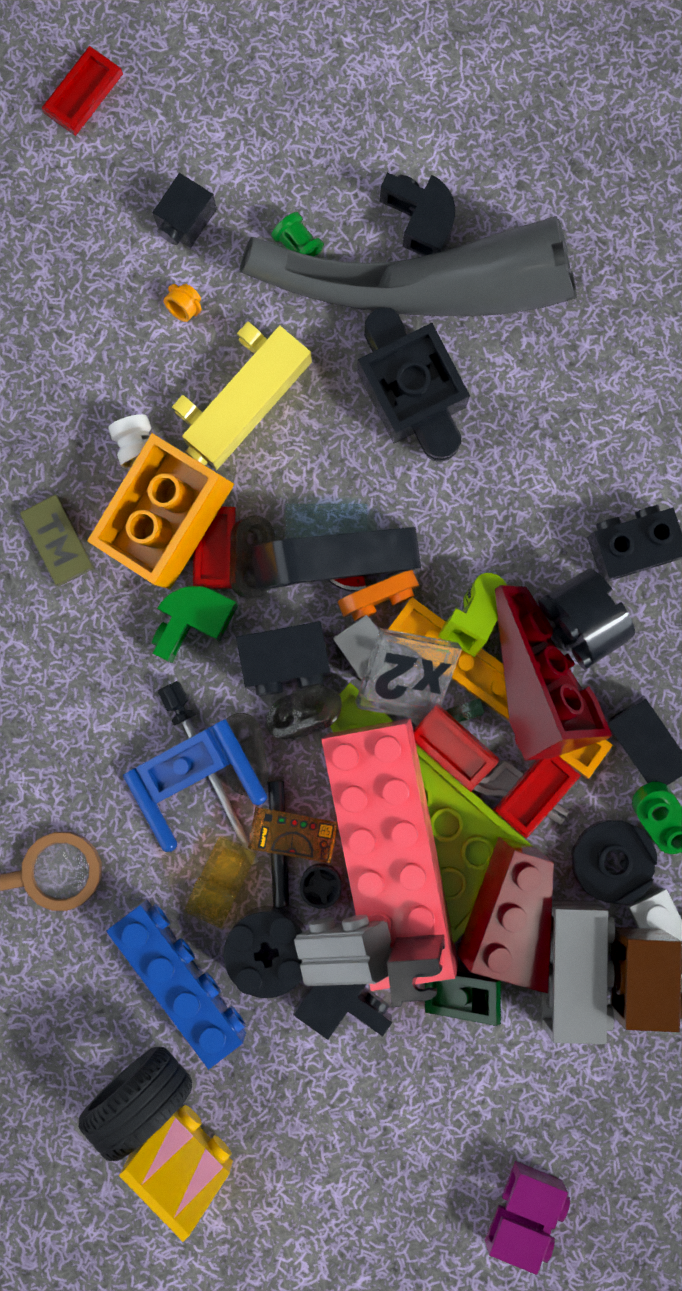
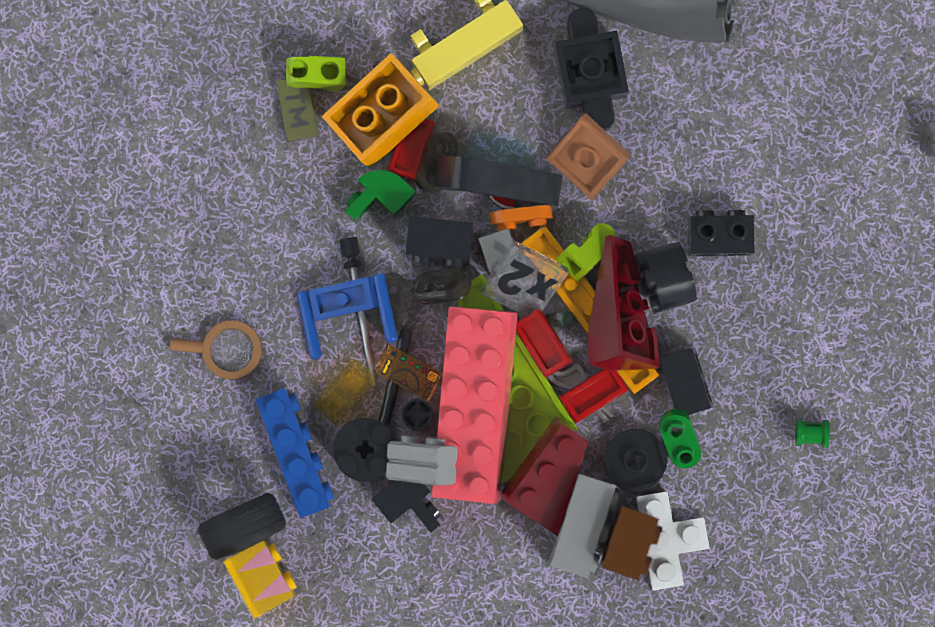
camera: 15 degrees right, 0 degrees up
(65, 488) = (316, 73): none -> lime leg
(131, 435) = (374, 50): white wheel -> none
(412, 959) = (464, 480): black hinge -> none
(442, 493) = (588, 156): none -> nougat plate
(467, 998) = (496, 522): dark green slope -> none

